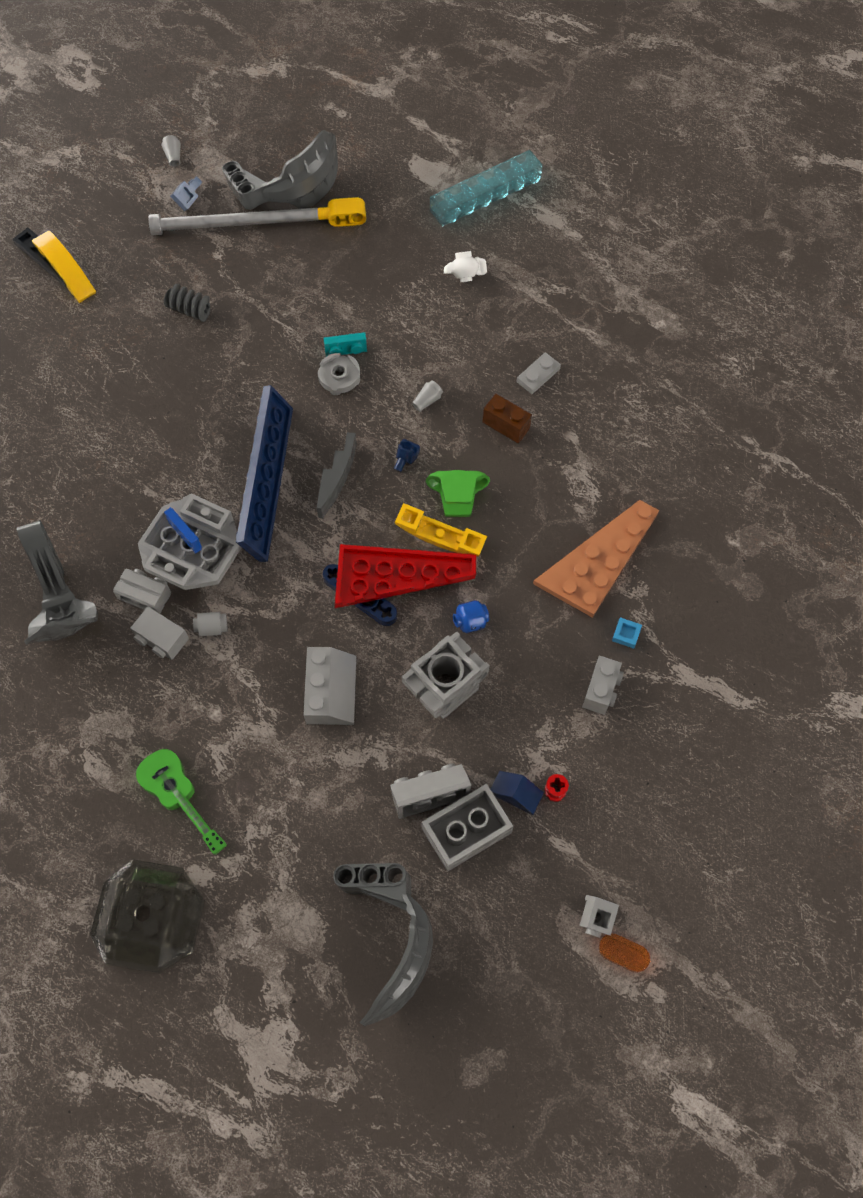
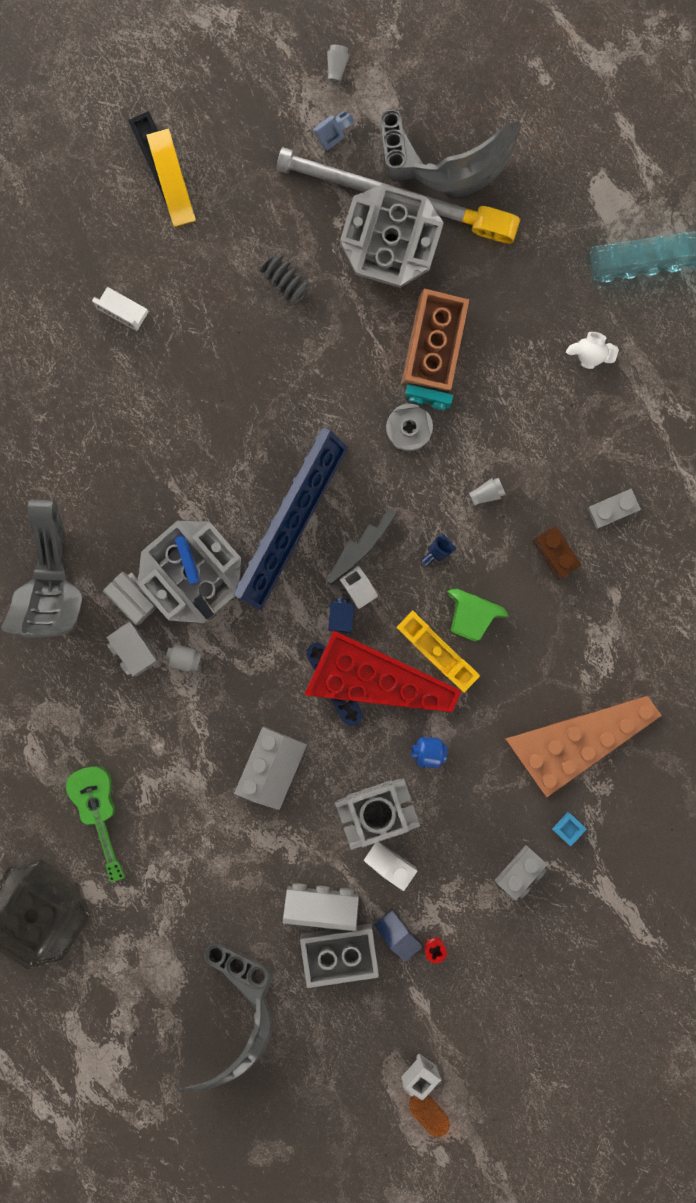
camera: 25 degrees right, 20 degrees up
(52, 373) = (121, 308): none -> white panel
(213, 562) = (204, 607): none -> black tile
(263, 241) = (395, 212): none -> light grey piece
(332, 300) = (435, 341): none -> nougat brick
(341, 533) = (341, 615): none -> dark blue brick
(347, 504) = (362, 590): none -> light grey brick
(480, 728) = (390, 865): none -> white slope

